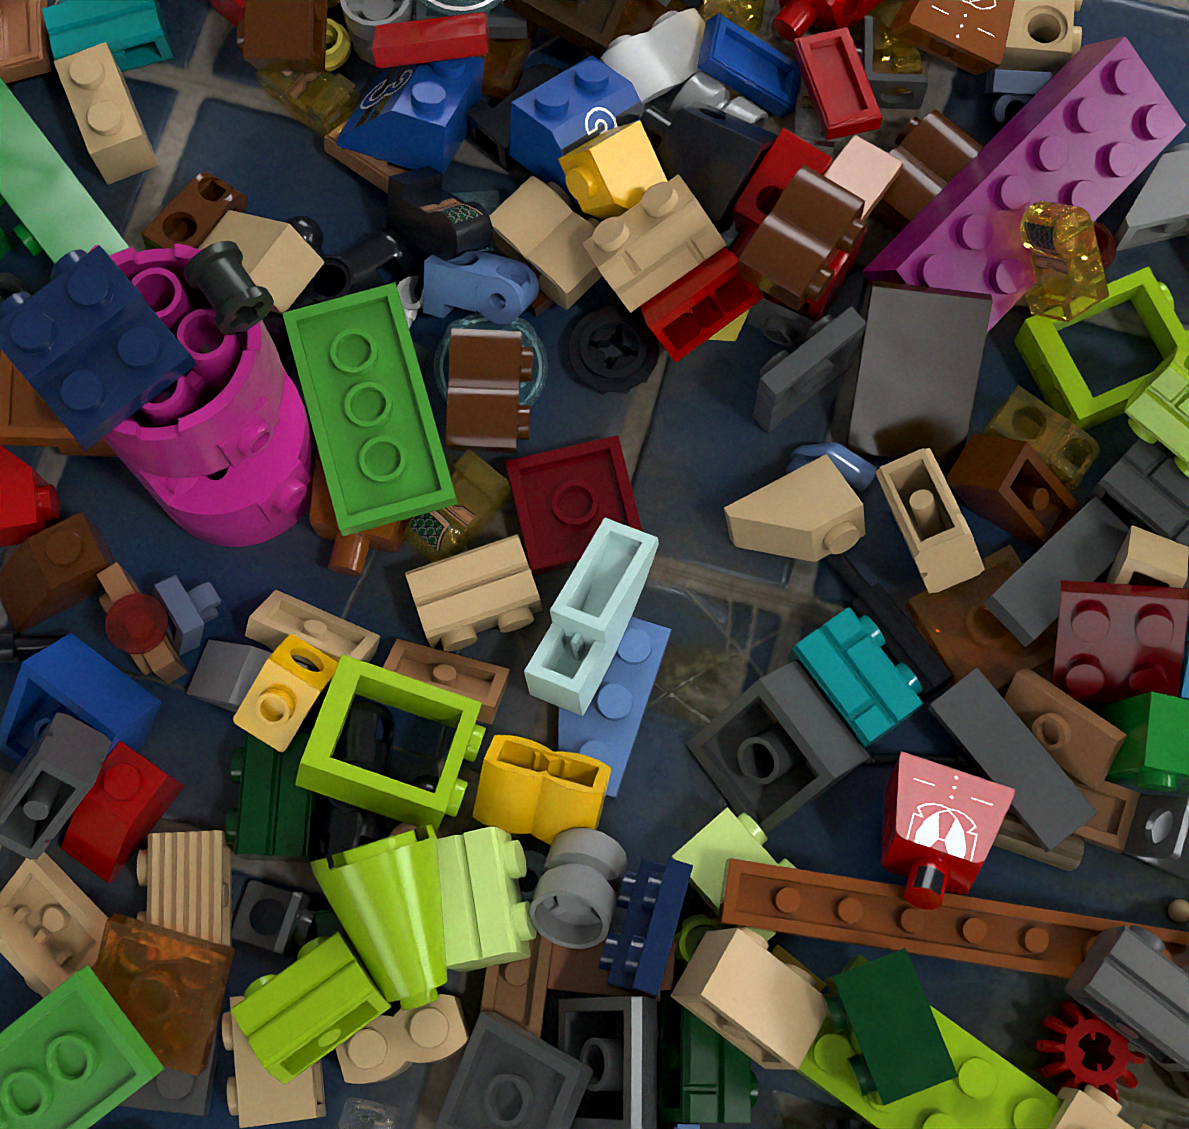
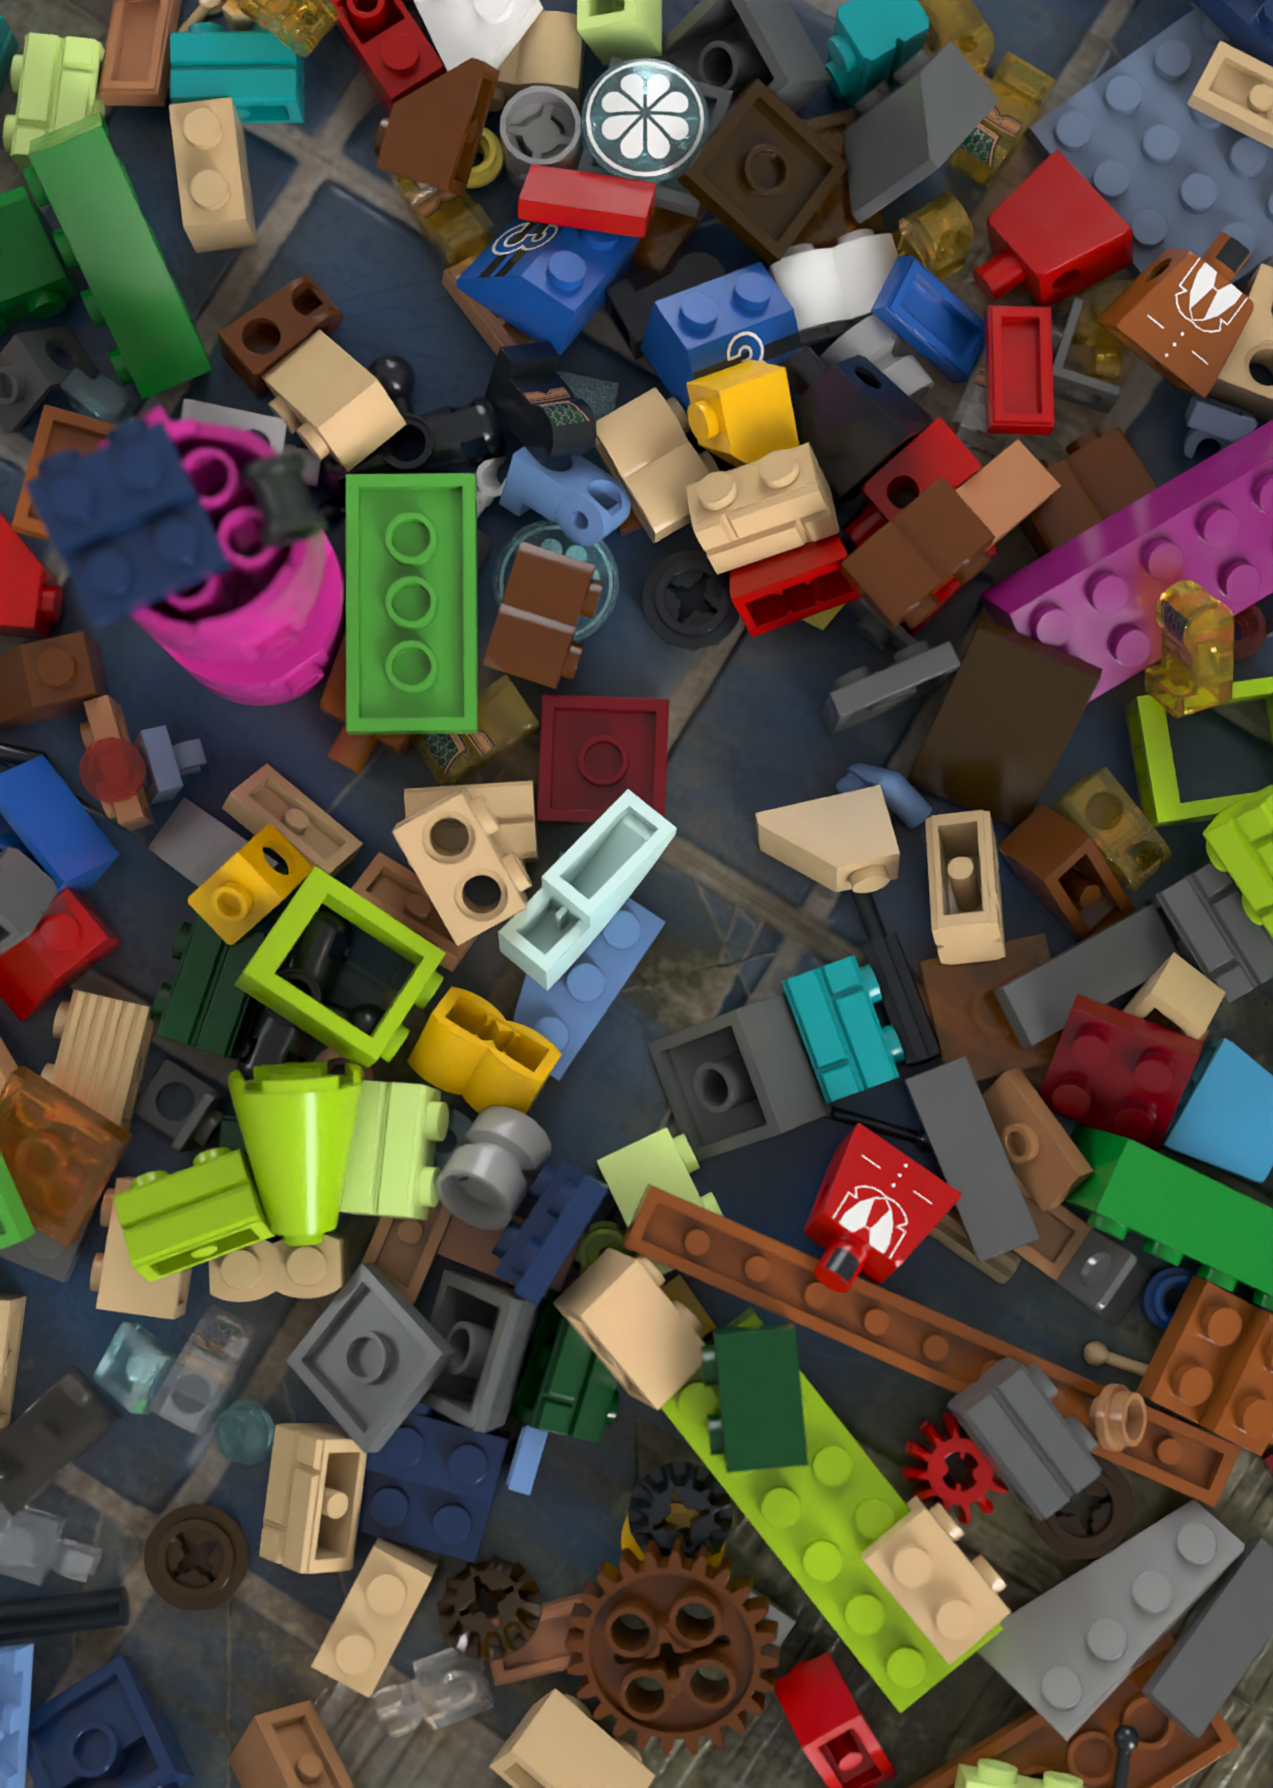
camera: 10 degrees right, 10 degrees up
(464, 629) = (446, 870): none -> tan brick

